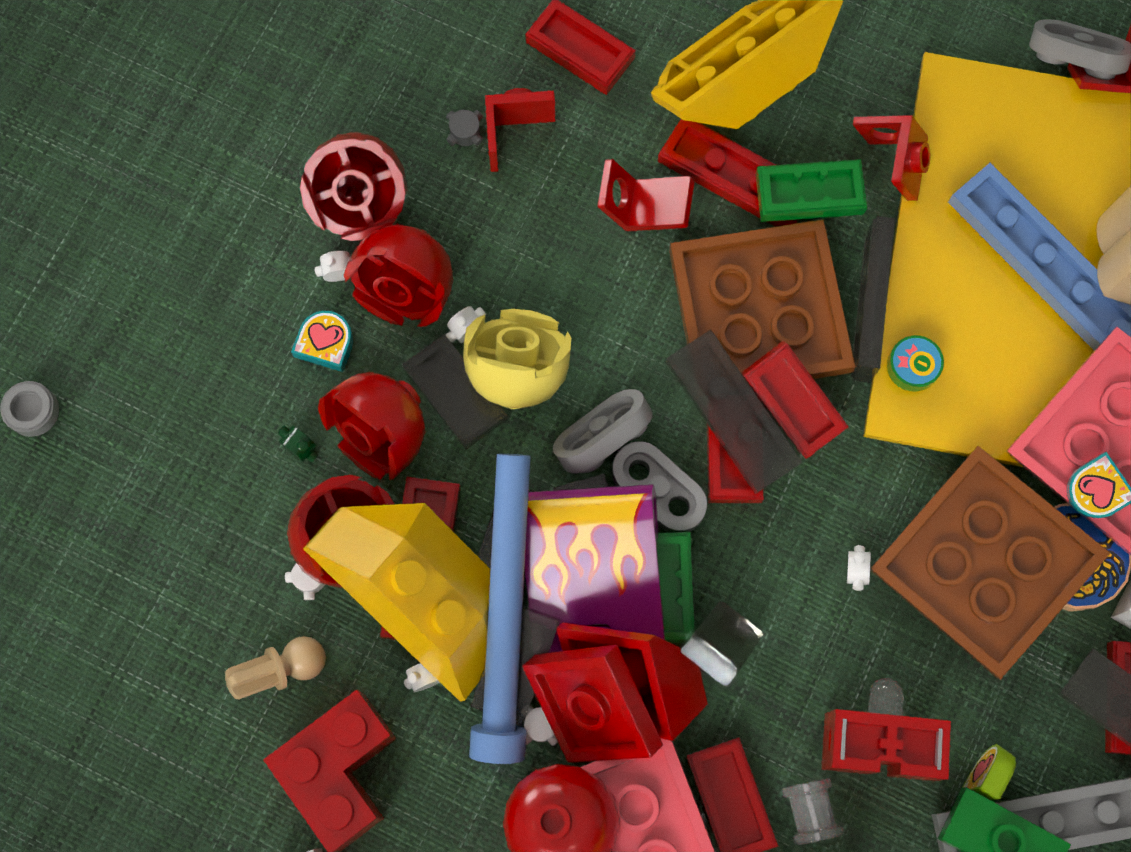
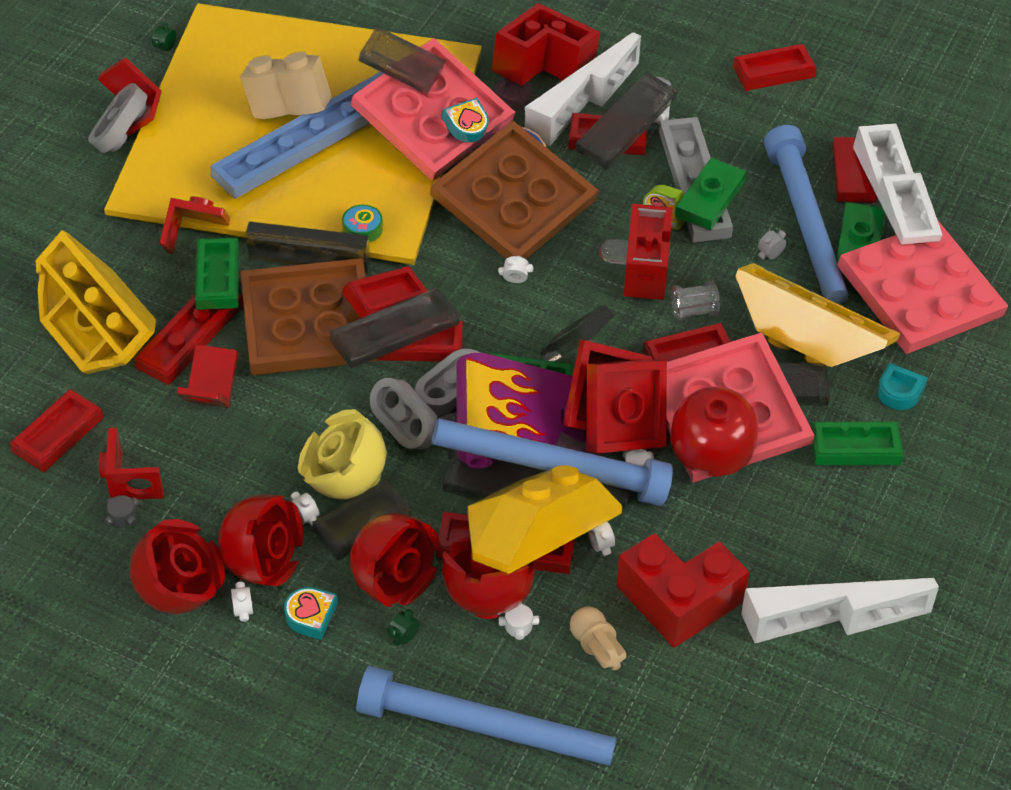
camera: 90 degrees left, 25 degrees down
(203, 420) = (381, 693): none -> medium blue piece

